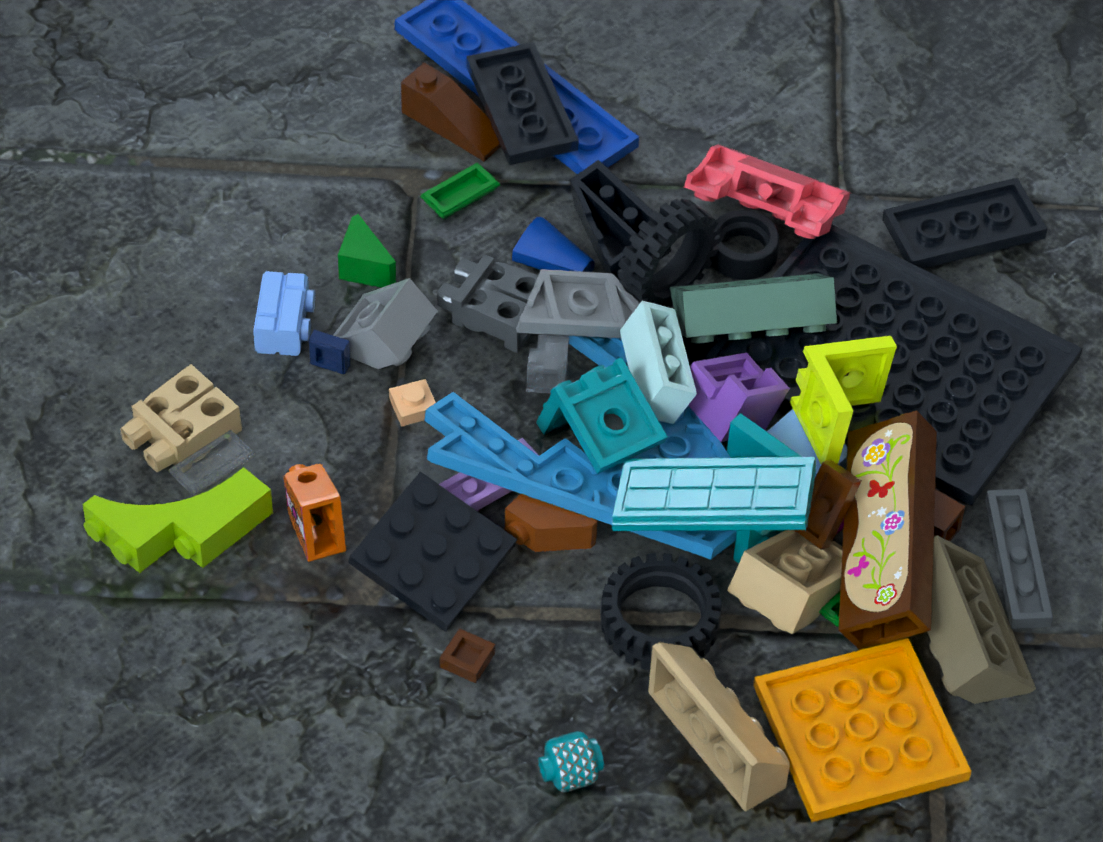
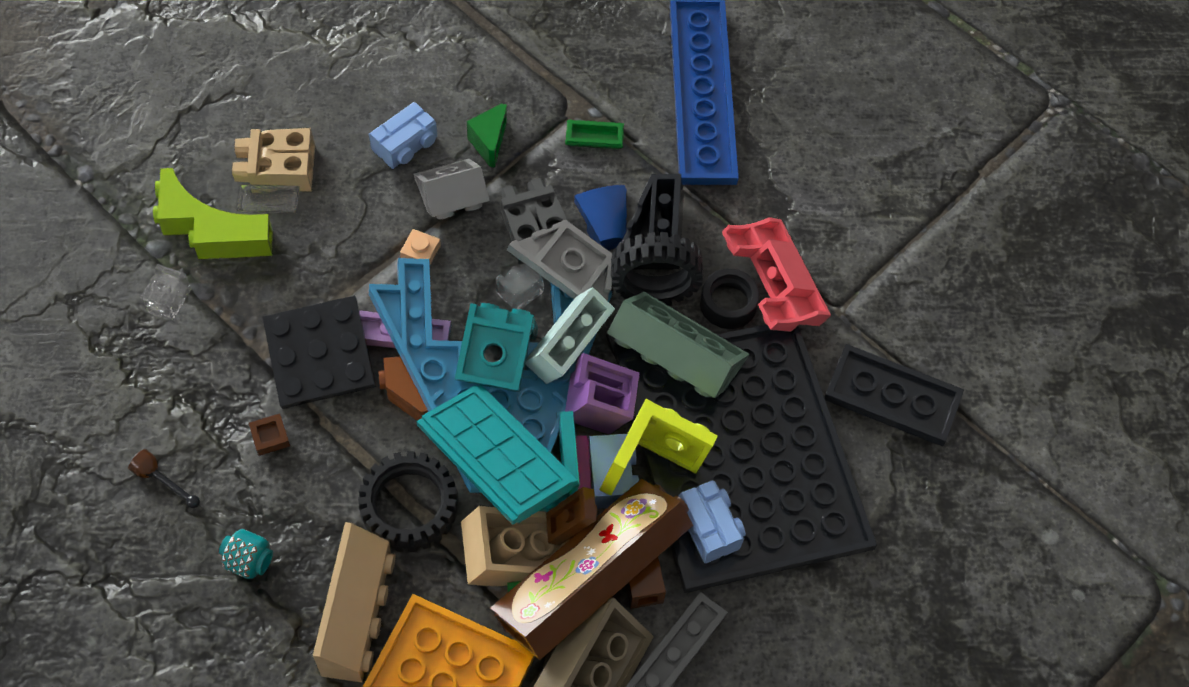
camera: 40 degrees right, 10 degrees up
(215, 612) = (166, 292): none -> clear brick
(309, 493) = (280, 271): orange torso -> none
(329, 352) = (402, 180): dark blue tile -> none
(384, 769) = (146, 465): none -> hinge
(448, 111) = (640, 80): reddish brown slope -> none
(522, 103) = (682, 104): black plate -> none
(956, 422) = (713, 526): none -> light blue brick

